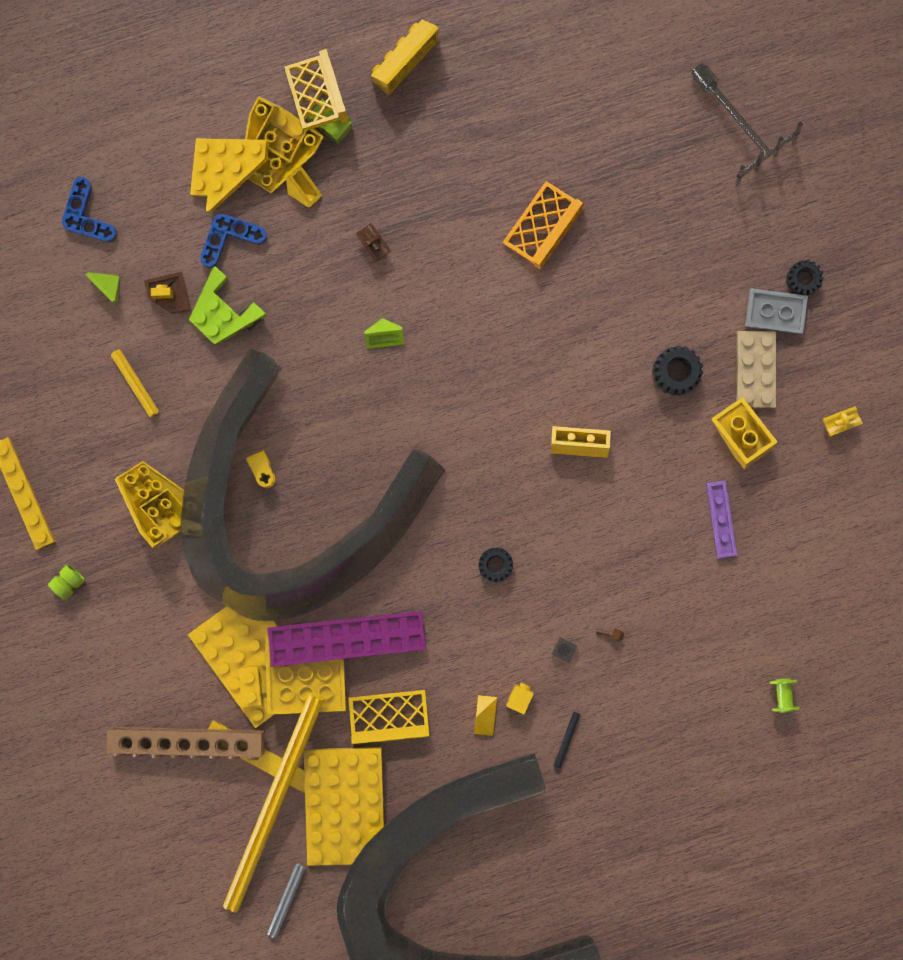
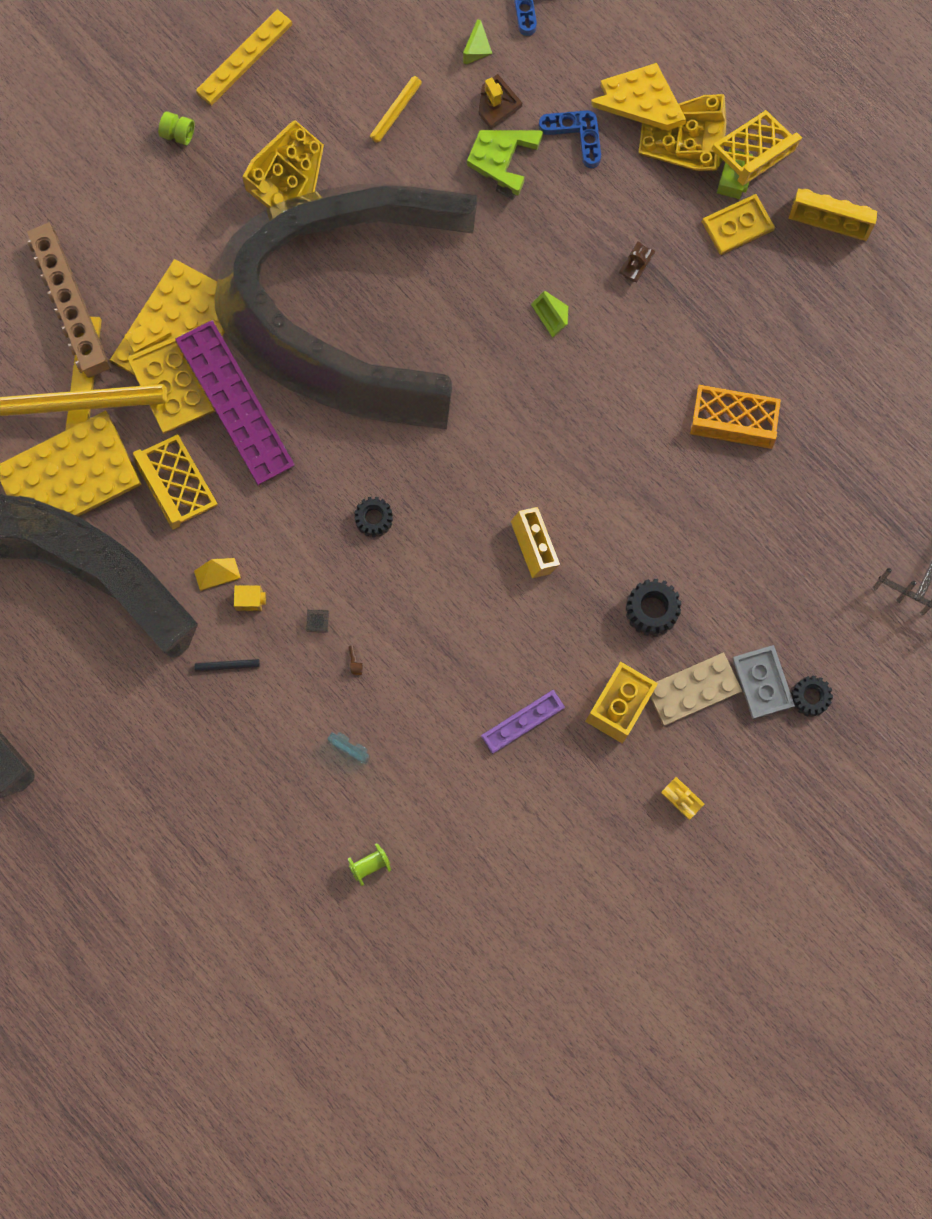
camera: 70 degrees right, 10 degrees down
(261, 466) = (368, 255): yellow piece -> none
(301, 187) = (658, 175): yellow slope -> none
(375, 140) = (738, 224): none -> yellow tile
(687, 666) = (341, 742): none -> clear light blue plate

